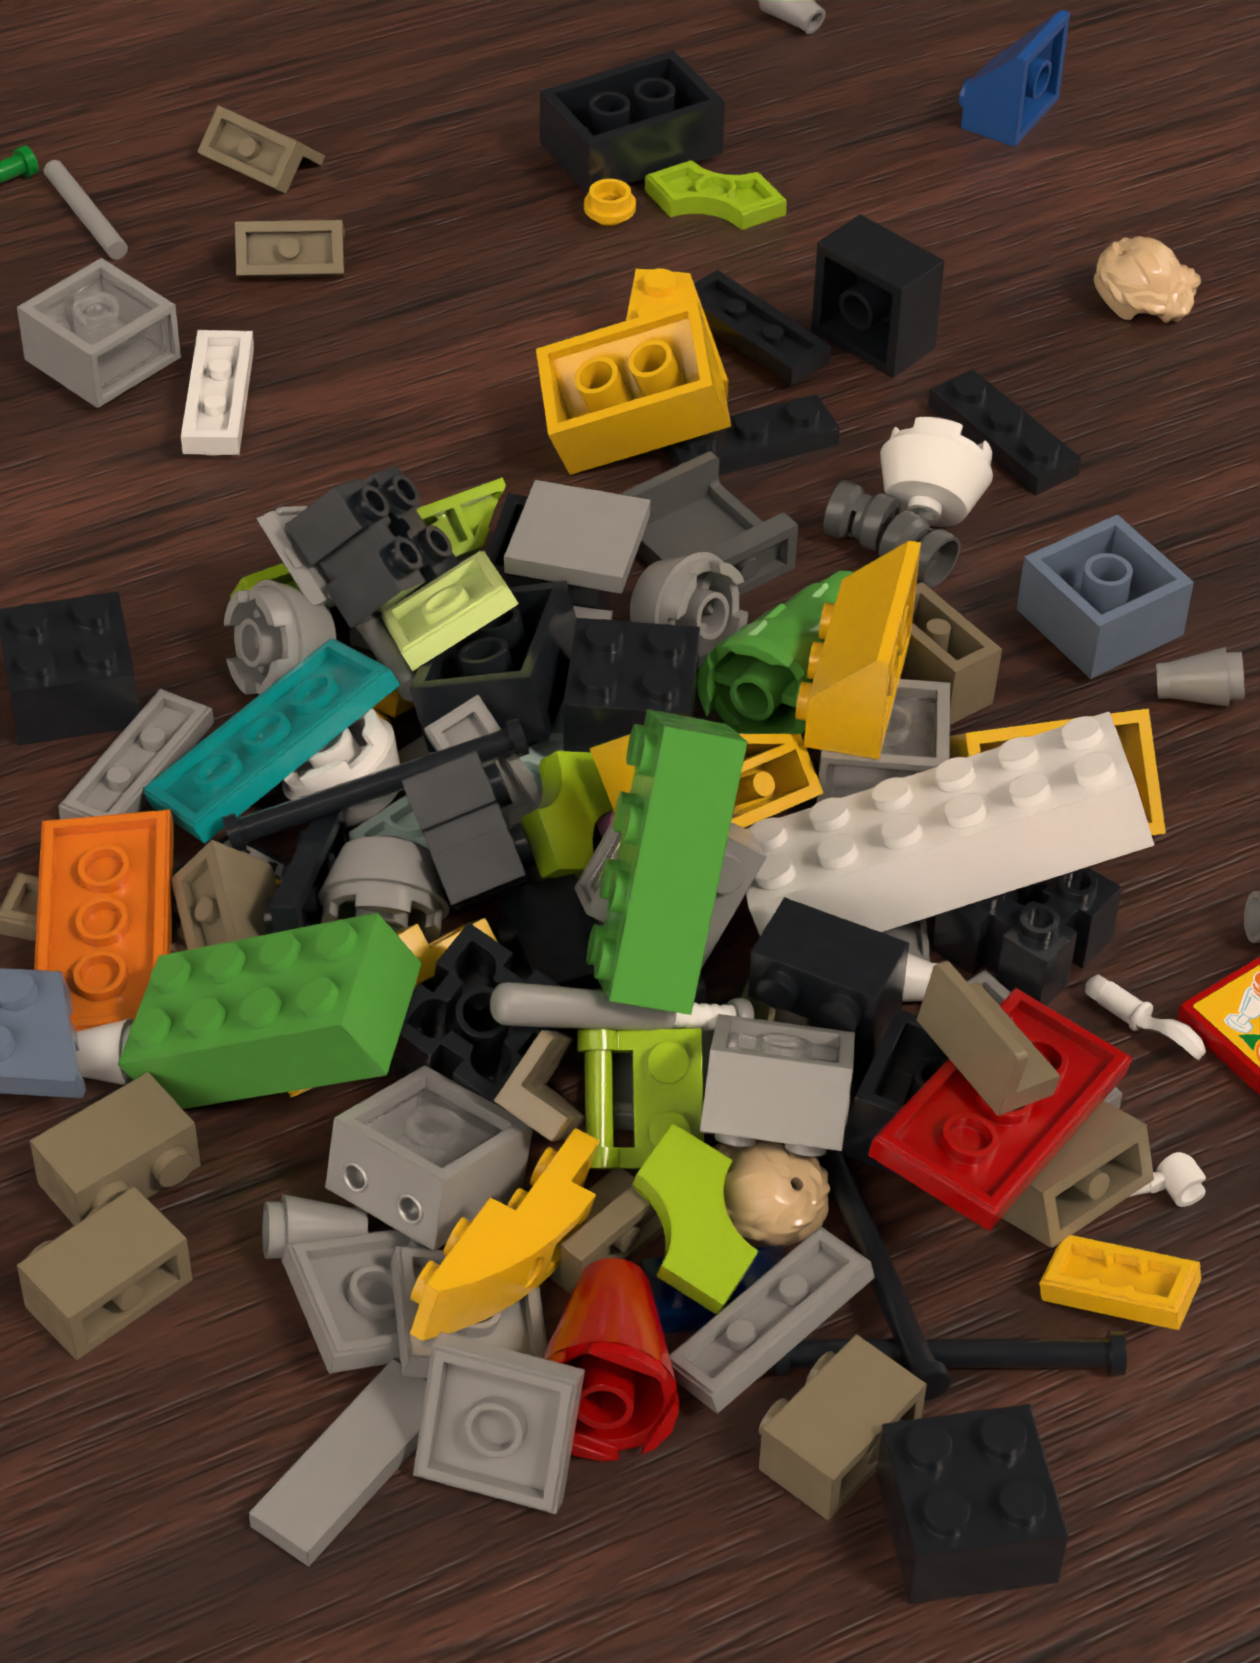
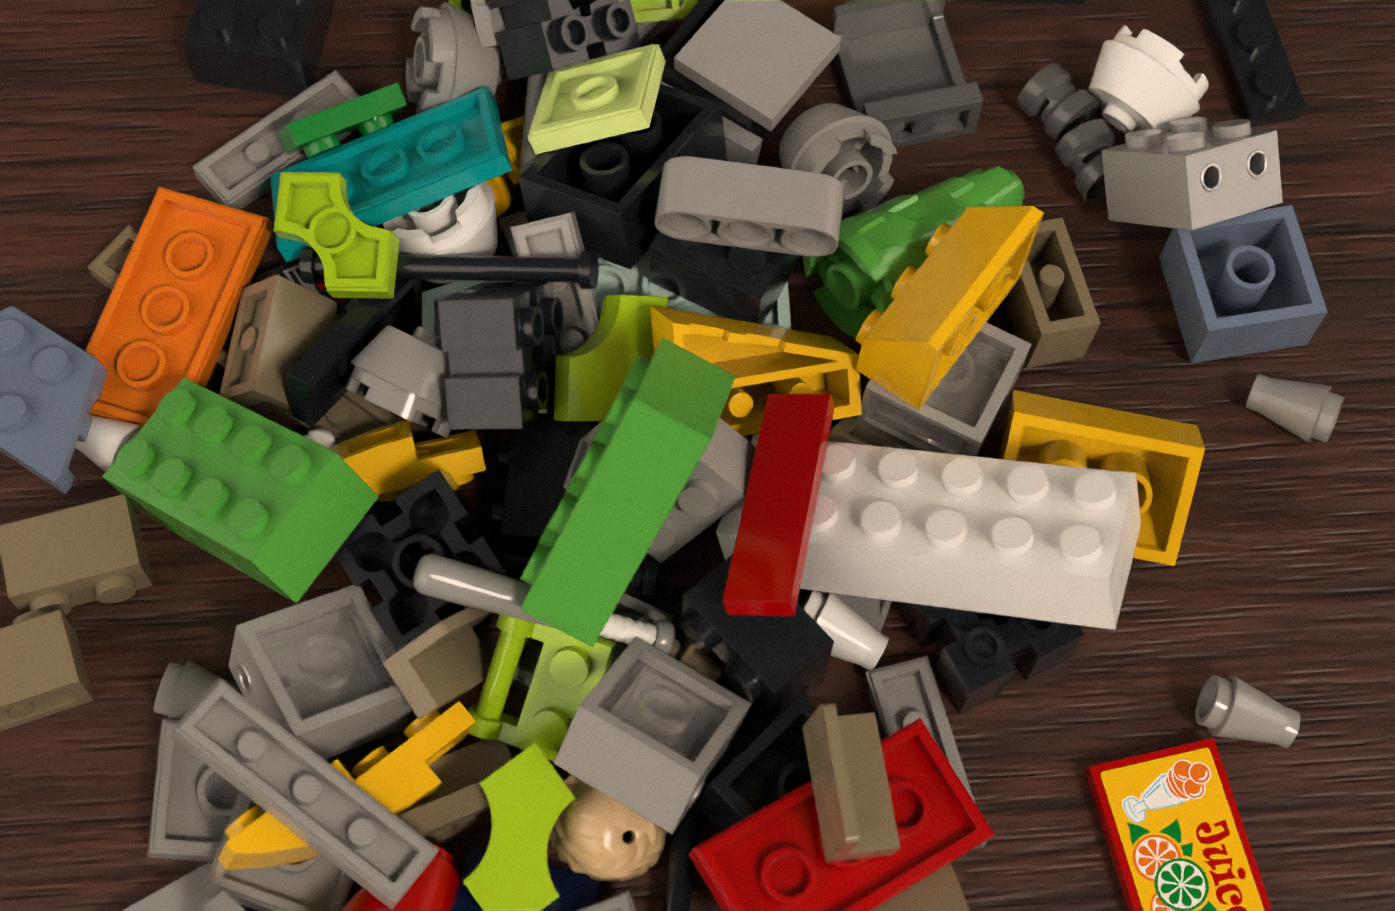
camera: 20 degrees right, 20 degrees up
(185, 723) = (320, 130): none -> green plate
(277, 797) = (355, 256): none -> lime tile
(479, 1224) = (305, 793): none -> light grey tile
(646, 633) = (750, 206): none -> light grey beam
(802, 851) = (779, 506): none -> red tile
(1015, 514) = (1192, 174): none -> light grey piece
(1139, 1013) = (1047, 758): white piece -> none

